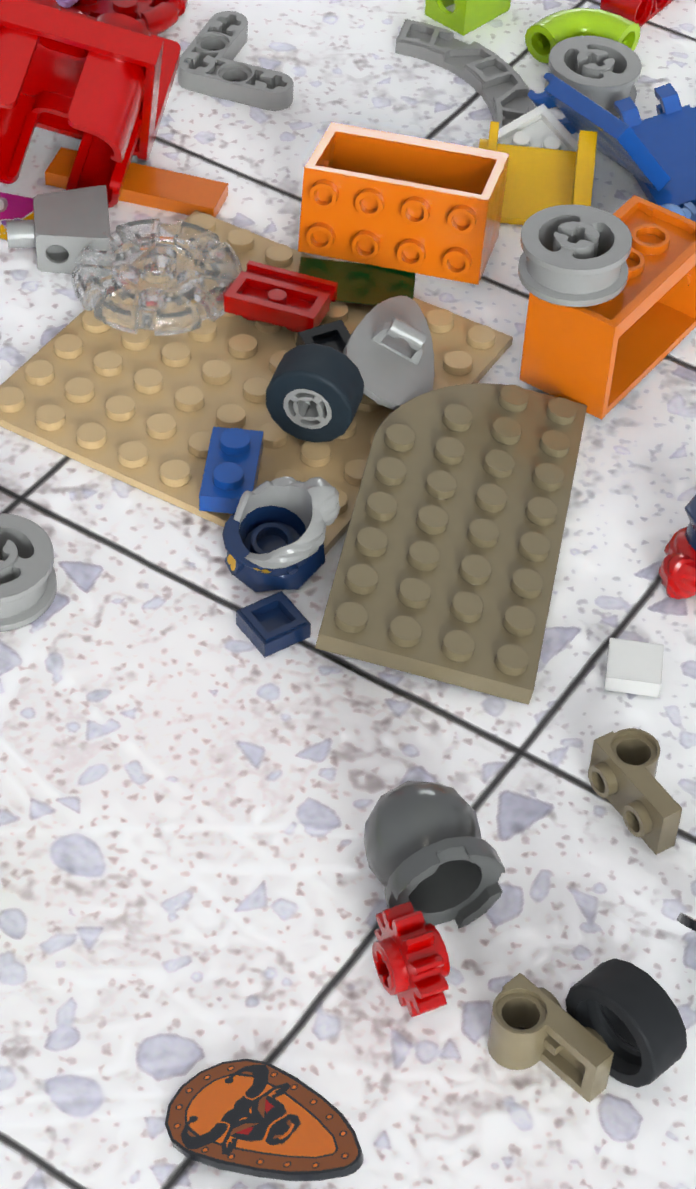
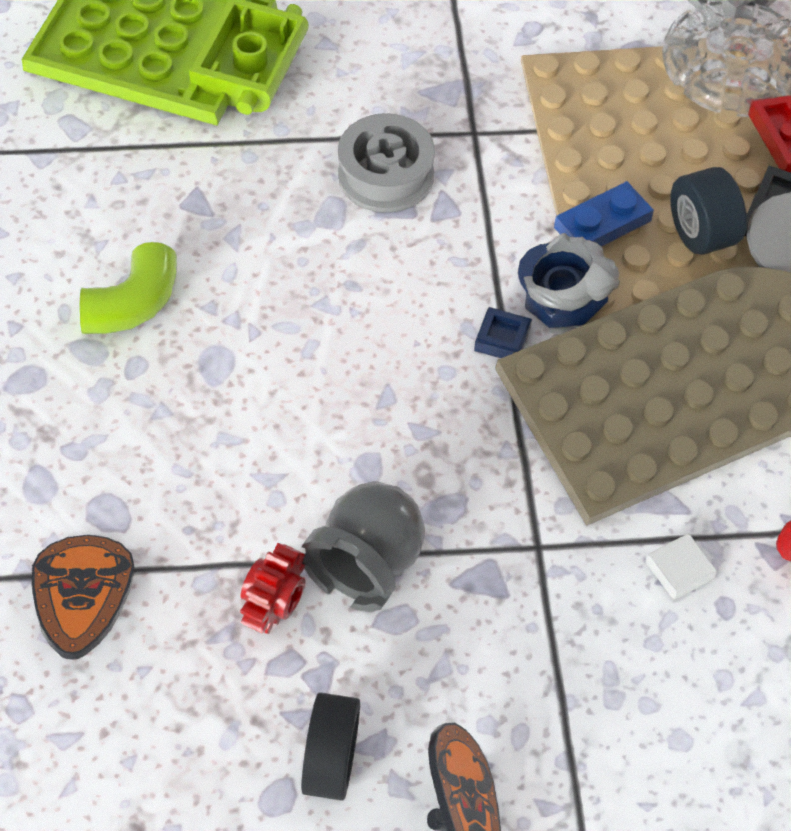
camera: 50 degrees right, 10 degrees up
(551, 1035) = (289, 707): dark tan plate -> none
(624, 773) = (559, 630): dark tan plate -> none

